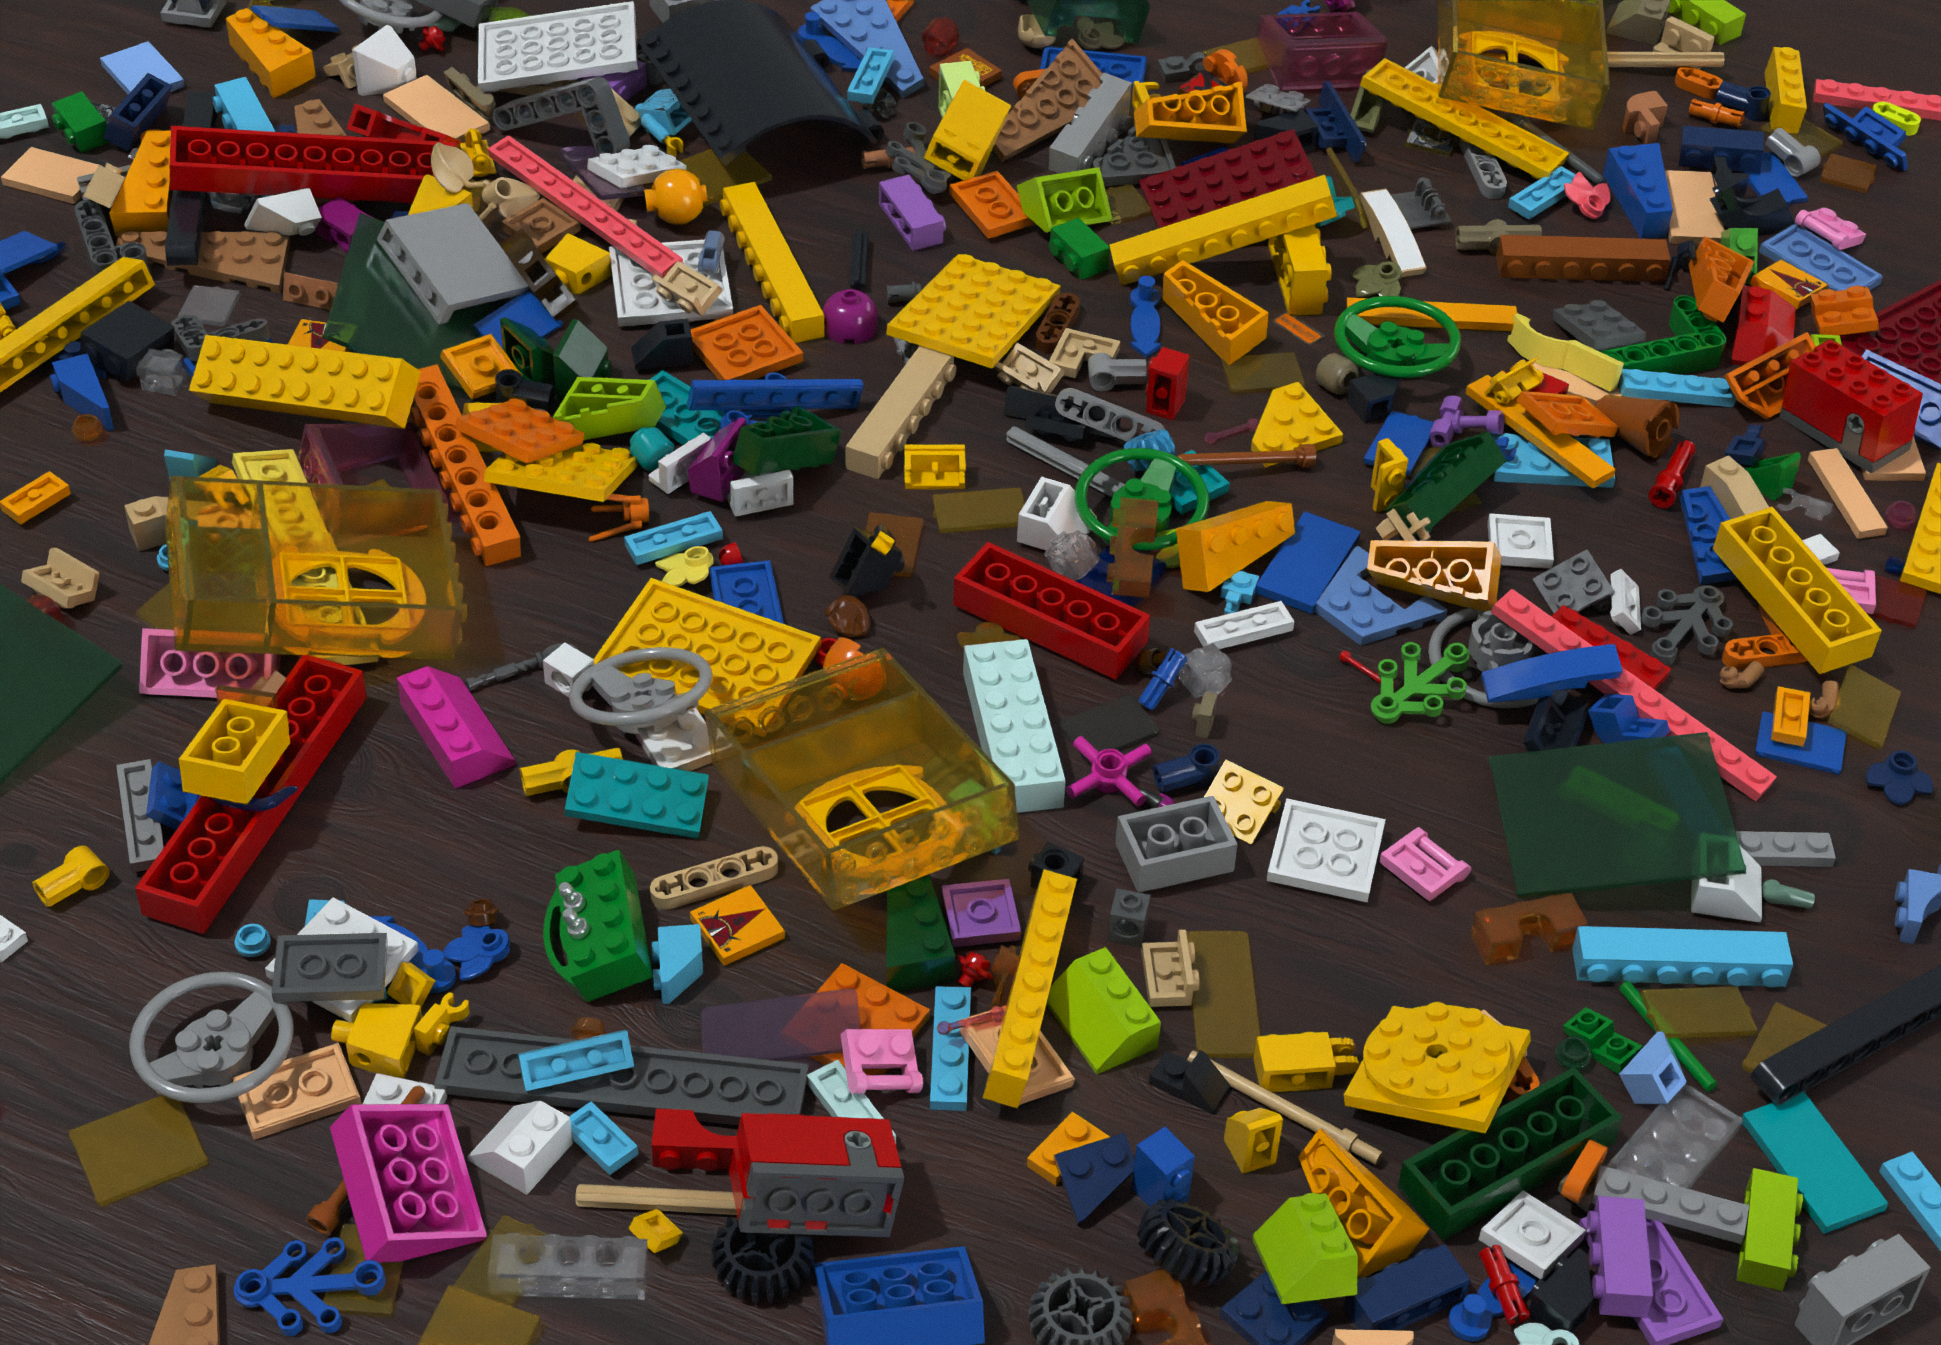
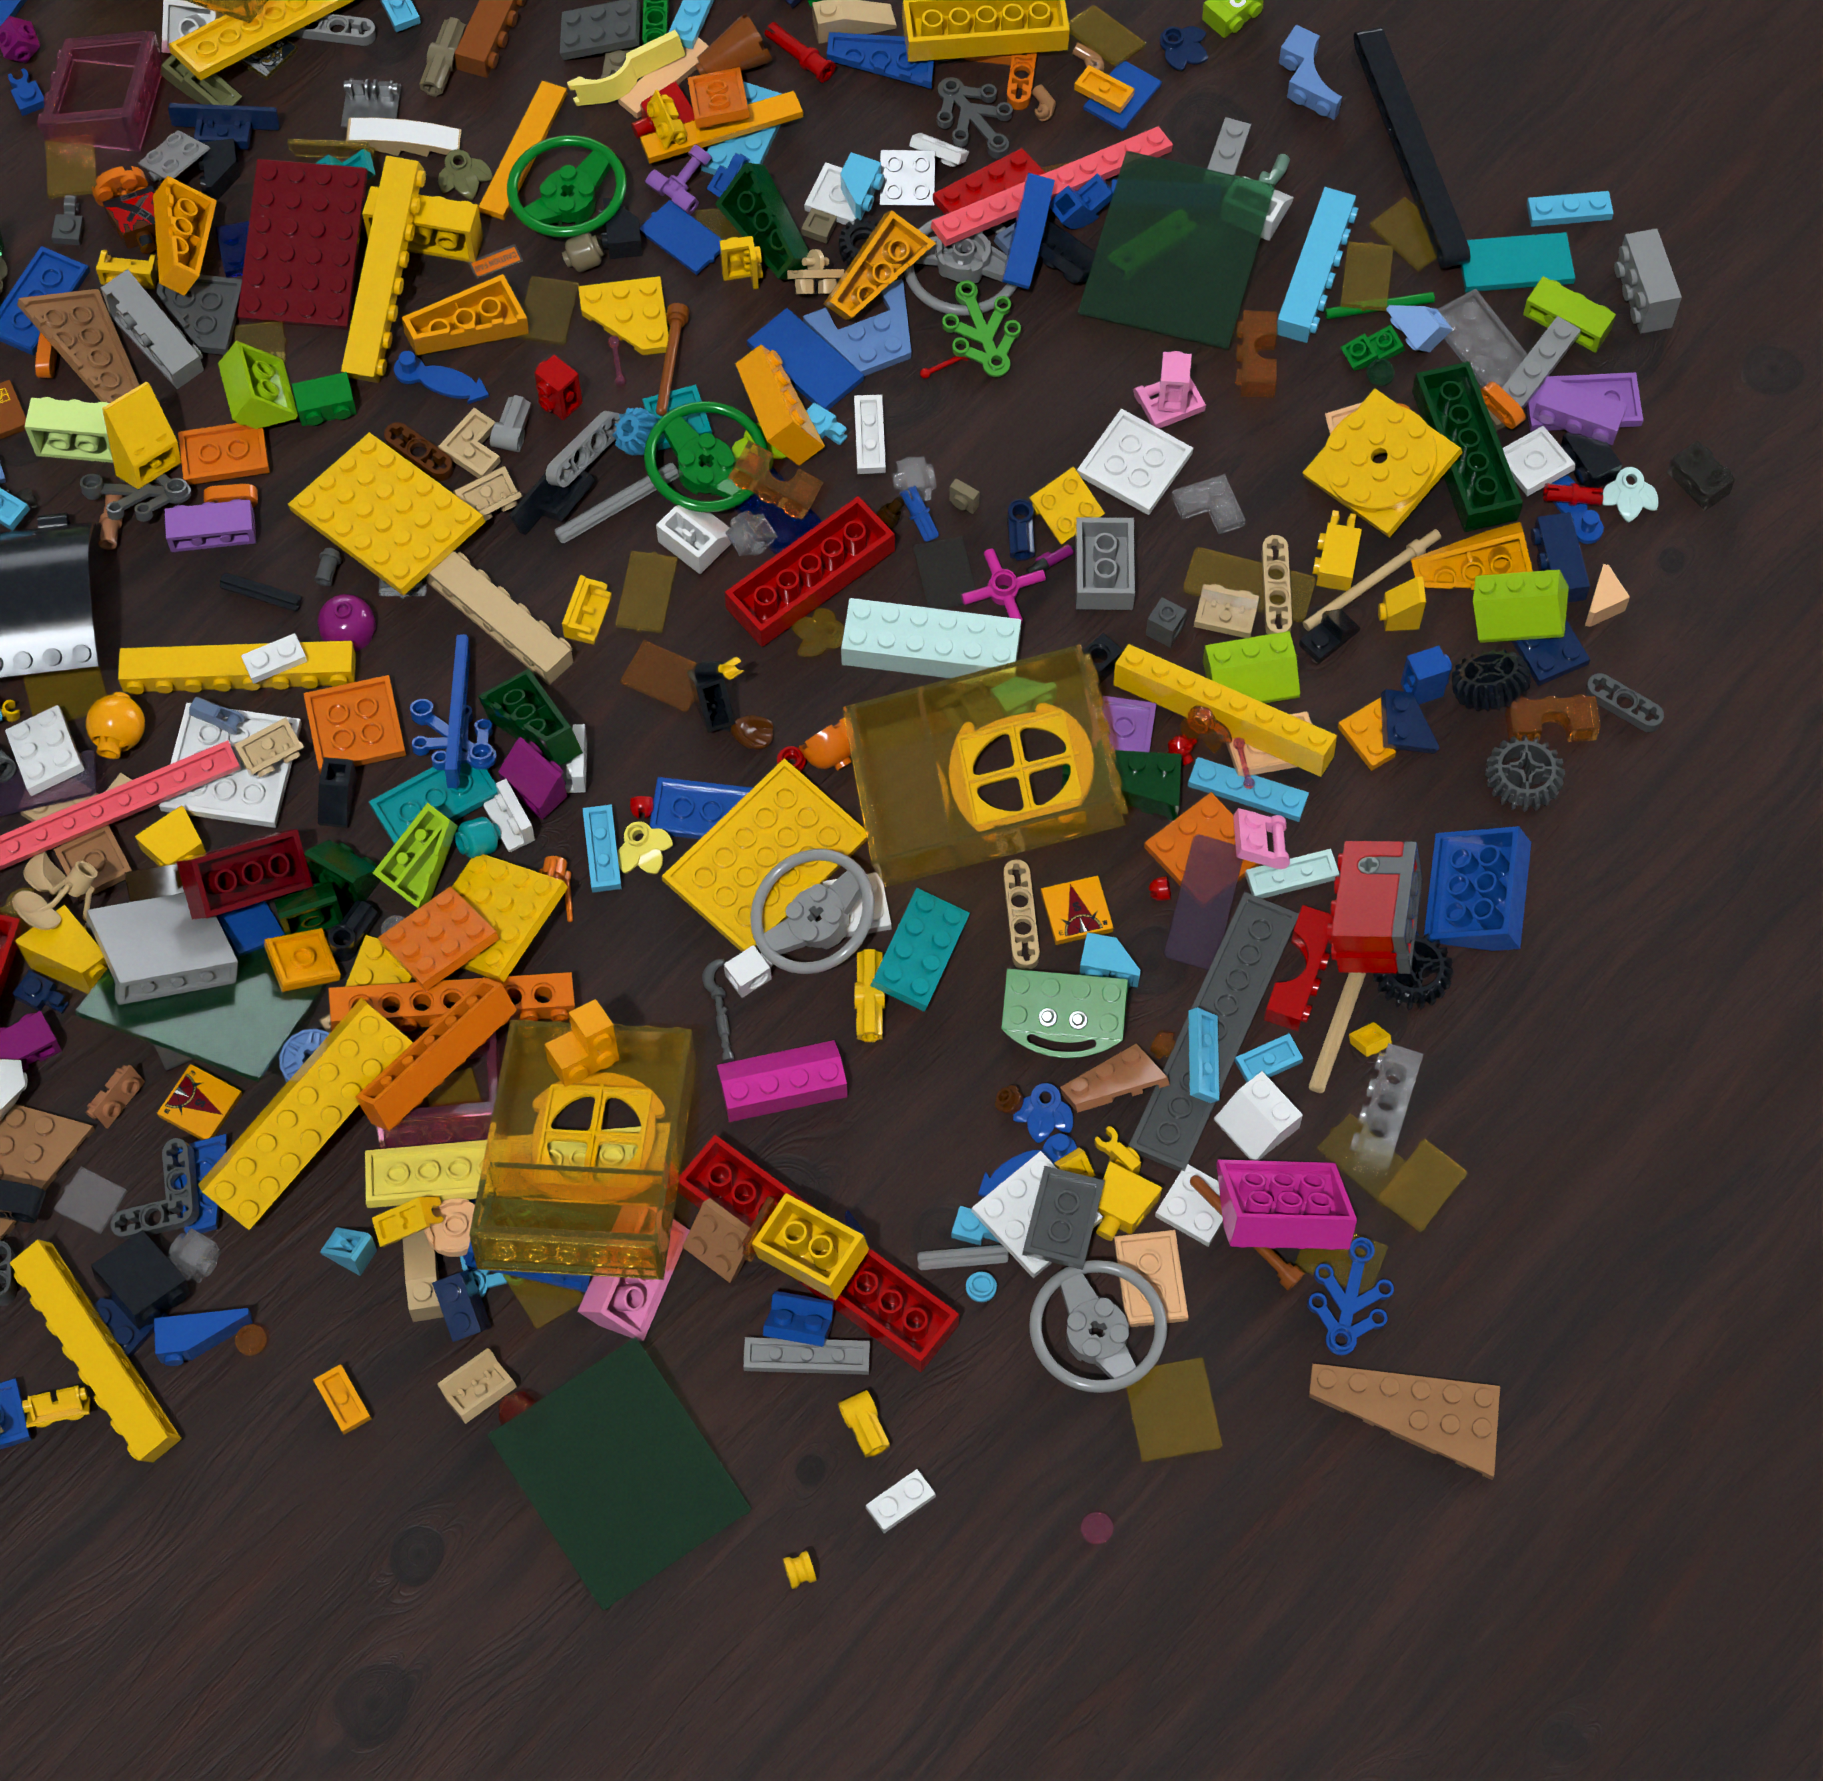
camera: 70 degrees left, 20 degrees up
(136, 542) = (461, 1305): none -> dark blue brick
(280, 906) = (962, 1257): none -> light grey axle
(381, 439) = (436, 1054): none -> orange brick
(409, 521) = (586, 1047): none -> light orange brick
(532, 997) = (1117, 1076): none -> nougat wing
(539, 288) = (244, 874): none -> dark red brick
(781, 268) = (274, 658): none -> white plate
(784, 983) = (1160, 889): none -> red hinge
(953, 221) = (226, 493): none -> orange beam
(1228, 1016) = (1279, 587): none -> tan beam
(1317, 933) = (1211, 496): none -> clear plate
(1430, 838) = (1174, 381): none -> bright pink brick
(1473, 530) = (819, 225): none -> dark tan plate
(1533, 539) = (859, 181): none -> medium azure slope

